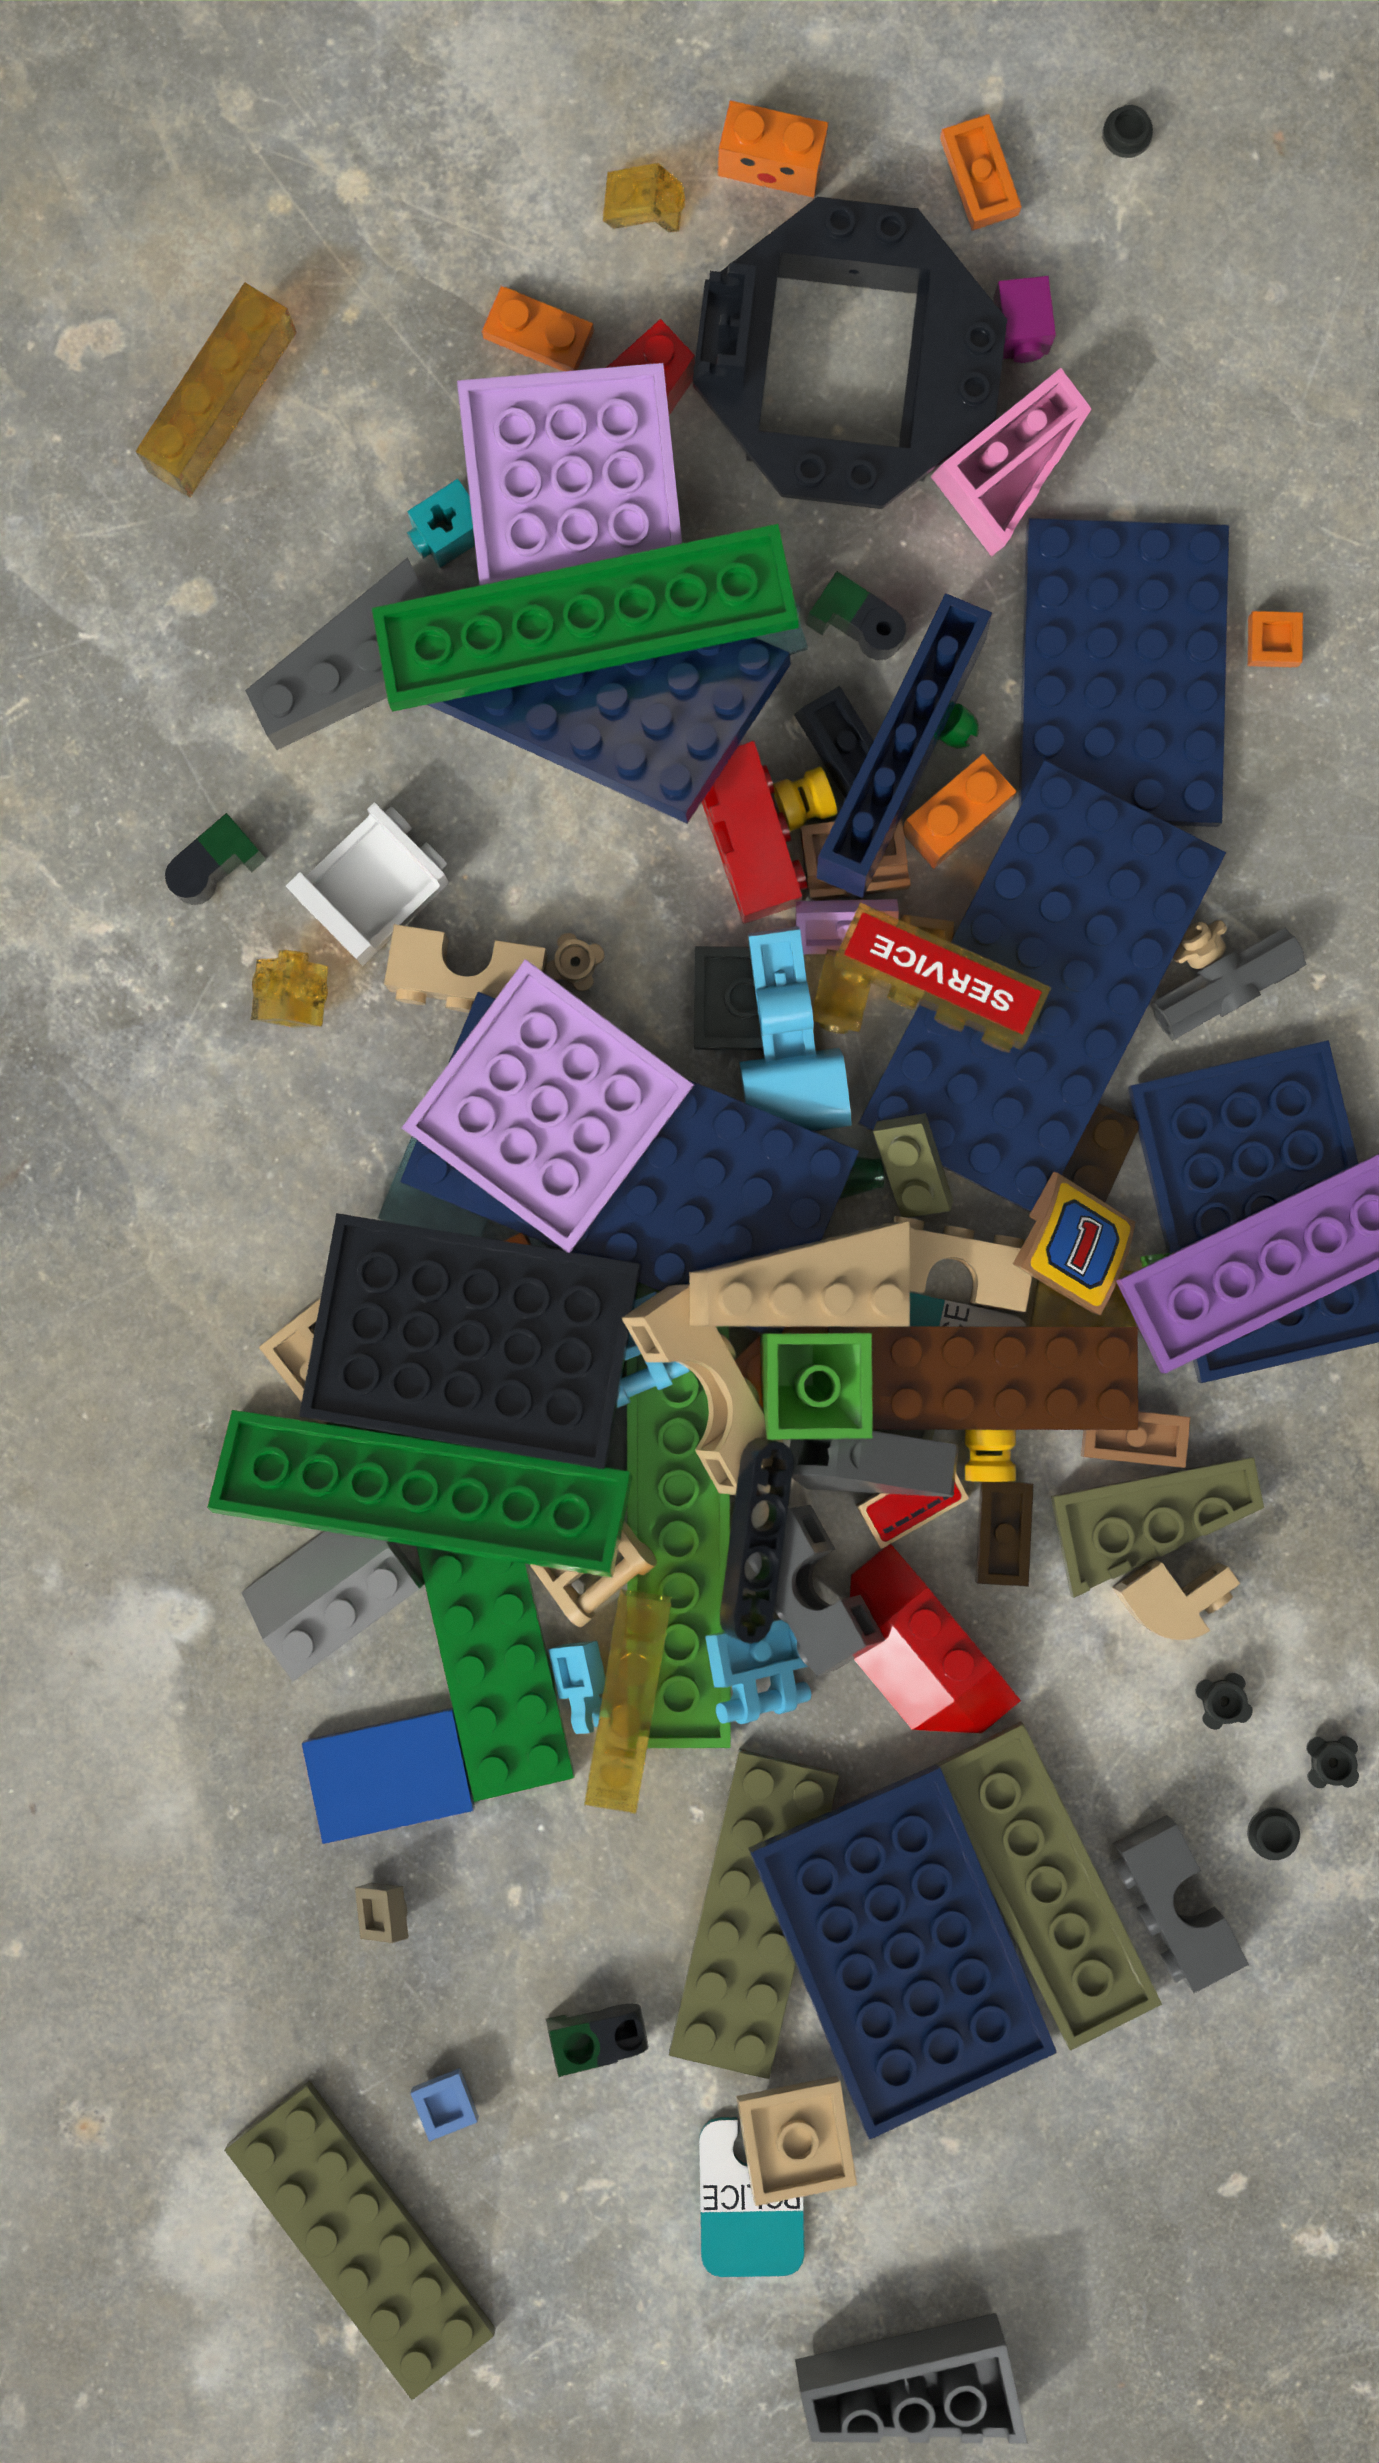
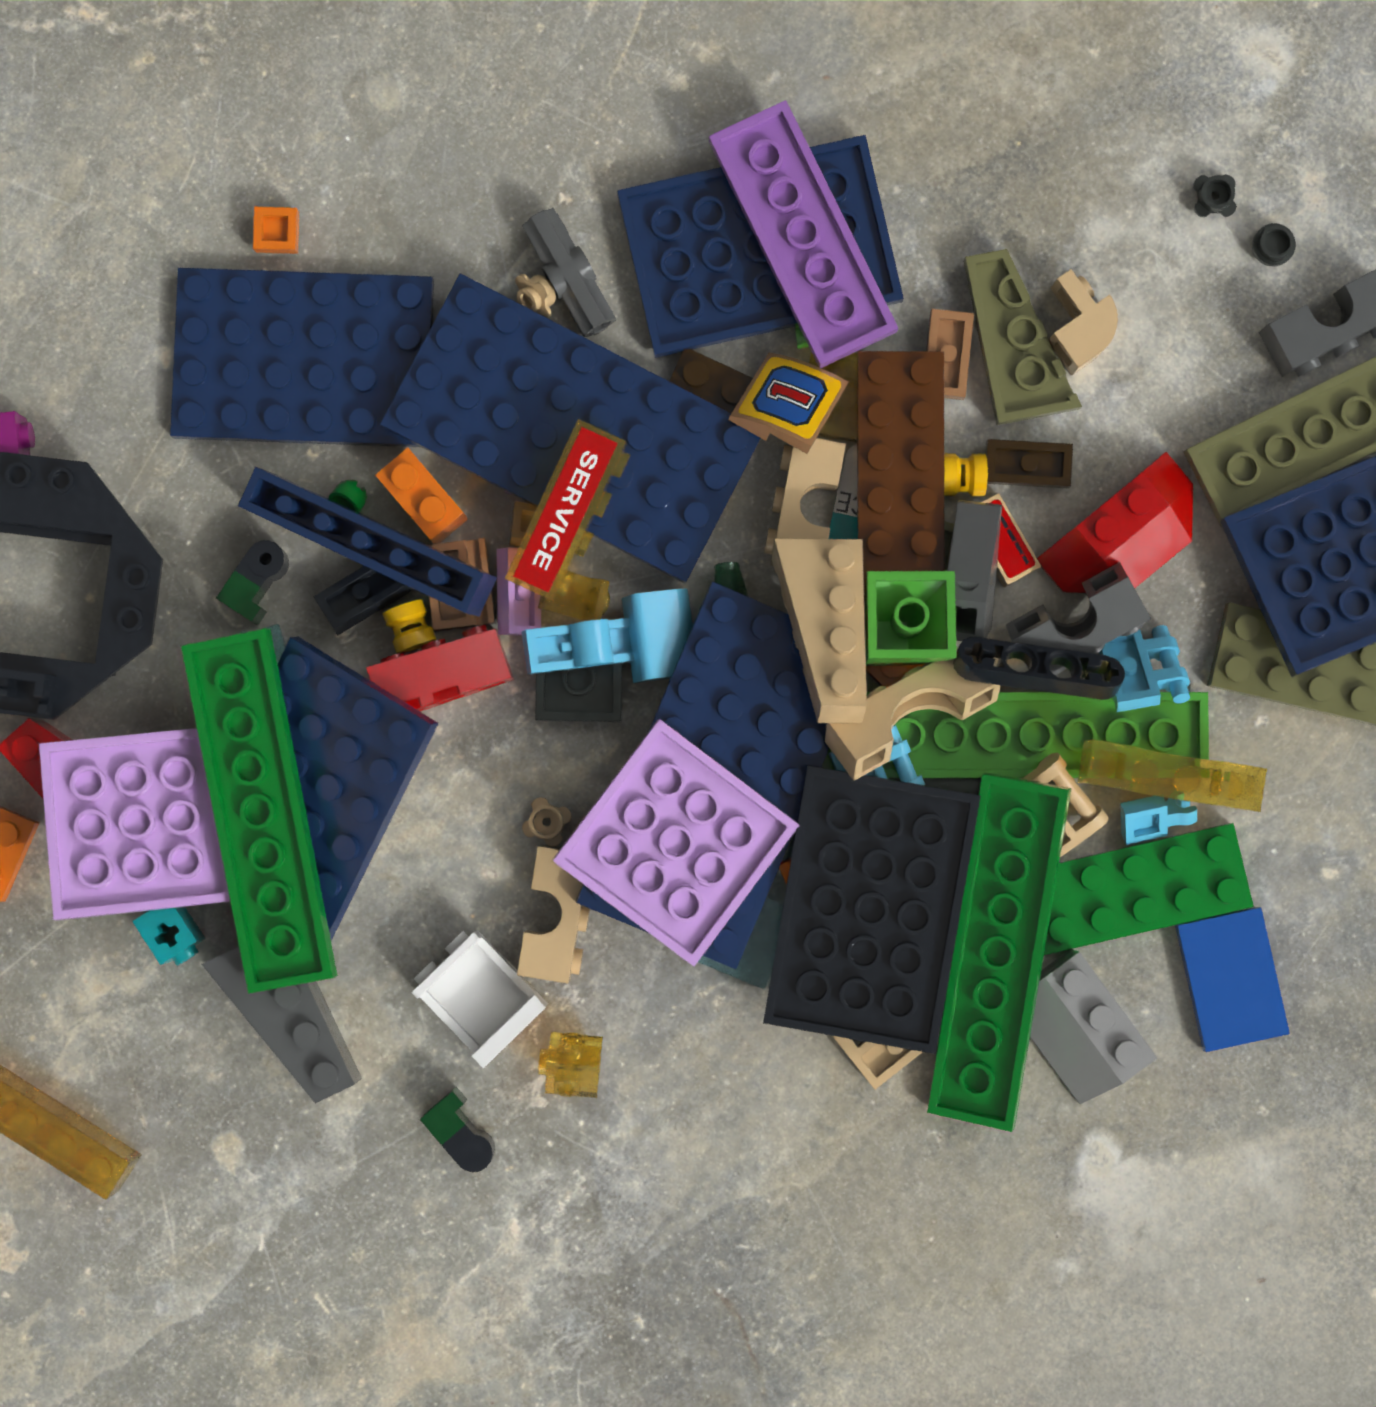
camera: 90 degrees left, 0 degrees up
(381, 1912) = (1346, 983): dark tan plate -> none
(913, 1165) = (722, 536): olive plate -> none
(1008, 462) = (124, 452): bright pink wedge -> none
(1237, 1708) = (1173, 275): pearl dark grey plate -> none

